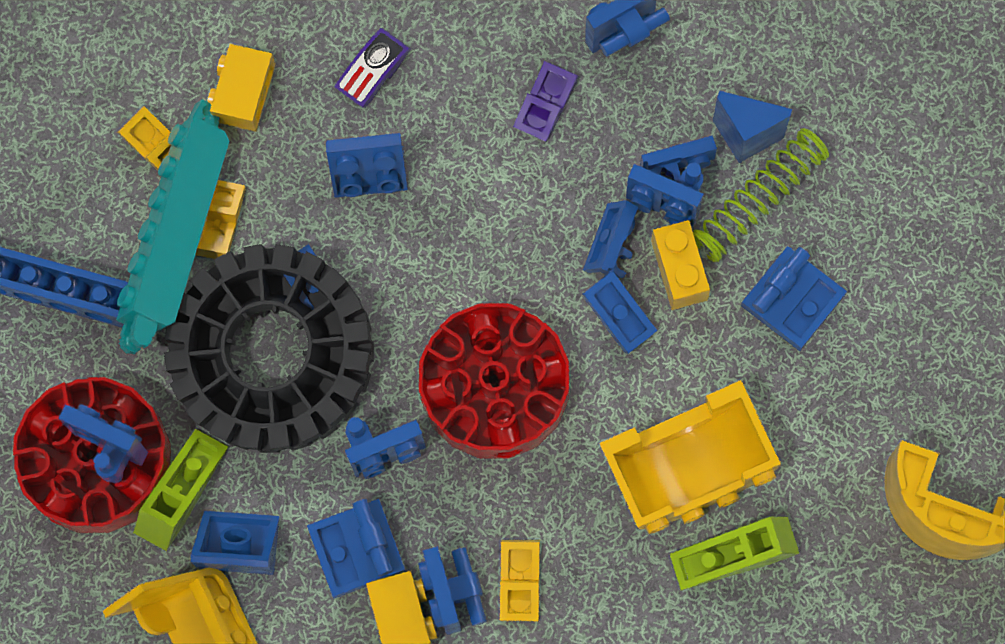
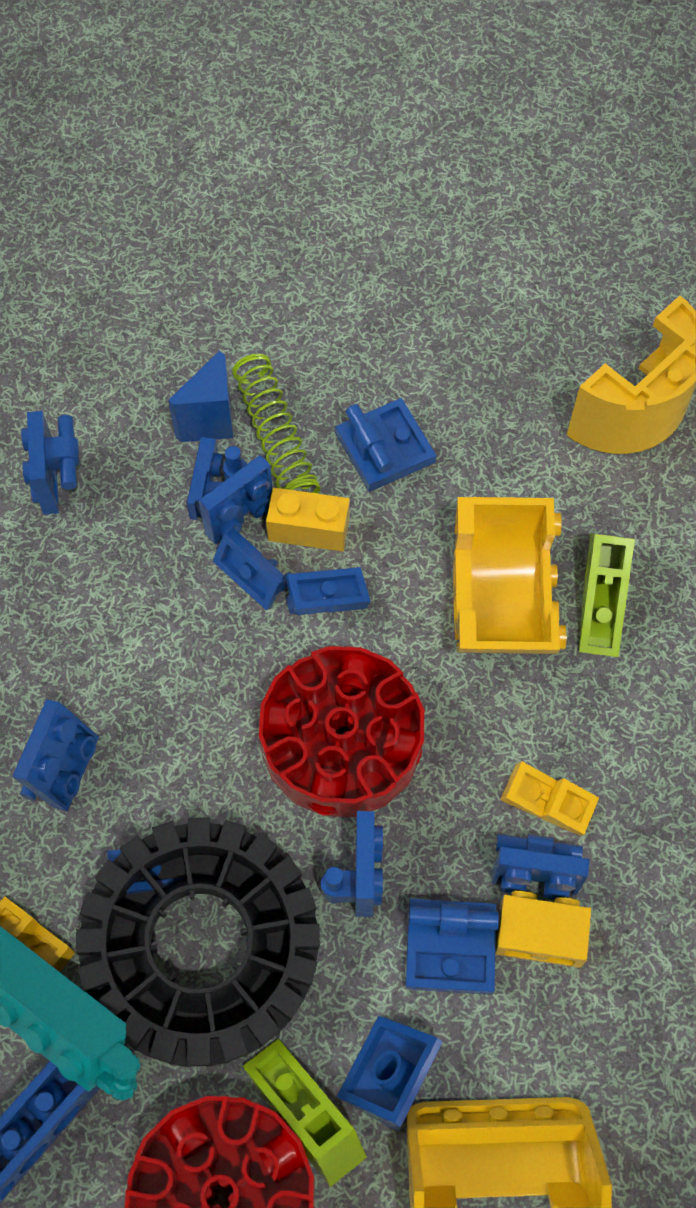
camera: 70 degrees left, 10 degrees down
(118, 441) = (235, 1146): blue plate -> none
(546, 101) = (82, 570): dark purple slope -> none

